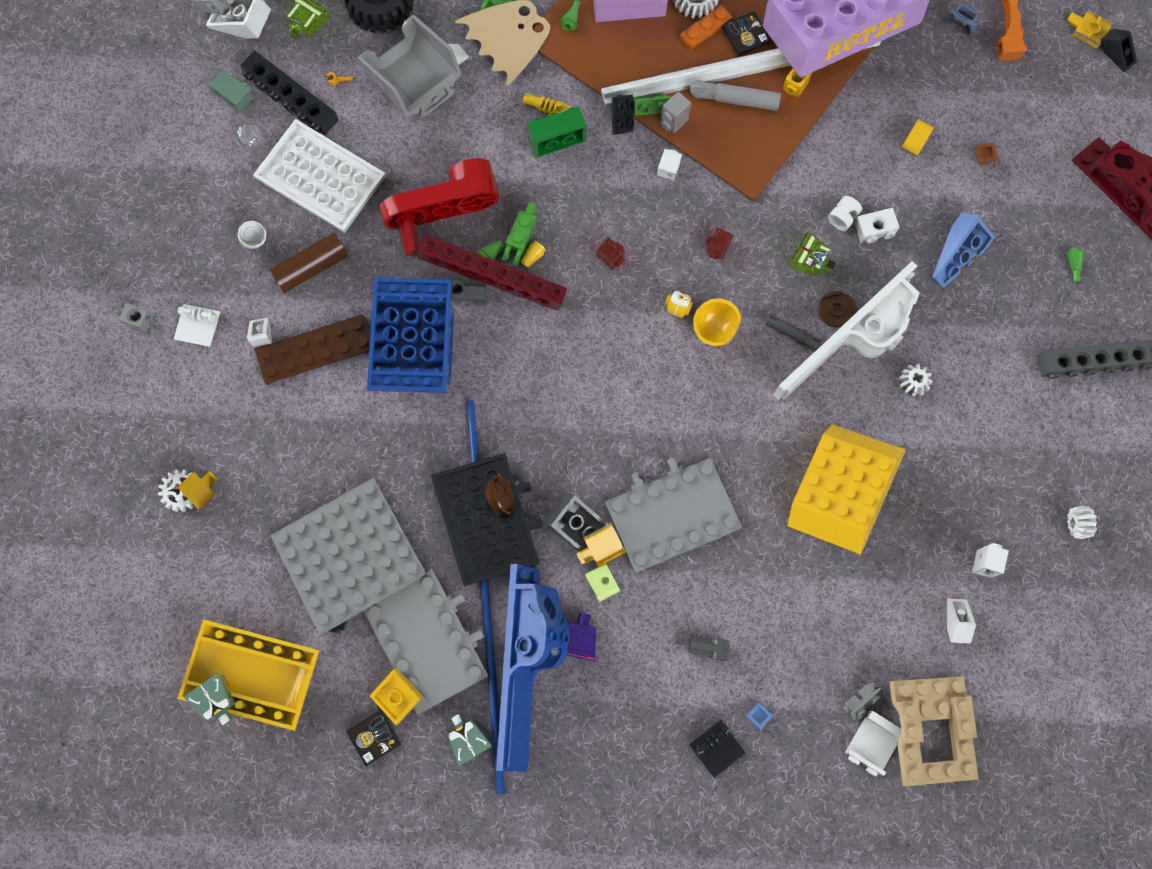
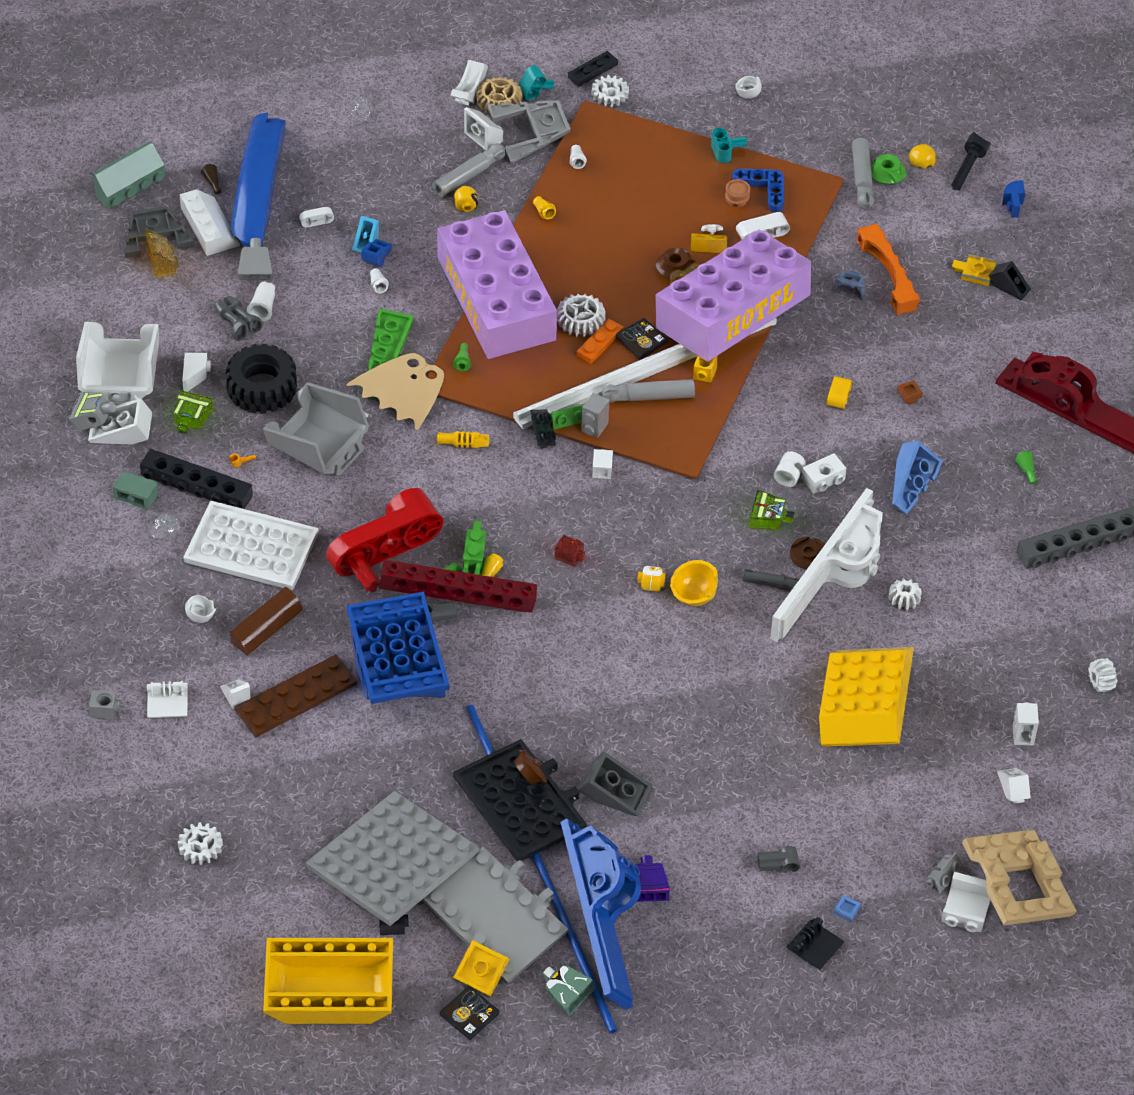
camera: 15 degrees left, 25 degrees down
(198, 489) = (222, 832): yellow piece -> none
(212, 699) = (301, 997): sand green torso -> none
(556, 131) = (481, 456): green brick -> none
(602, 546) = (643, 797): yellow piece -> none
(602, 582) = (654, 830): yellowish green piece -> none
(672, 514) = (704, 758): light grey hinge -> none
(718, 243) = (674, 520): clear red brick -> none

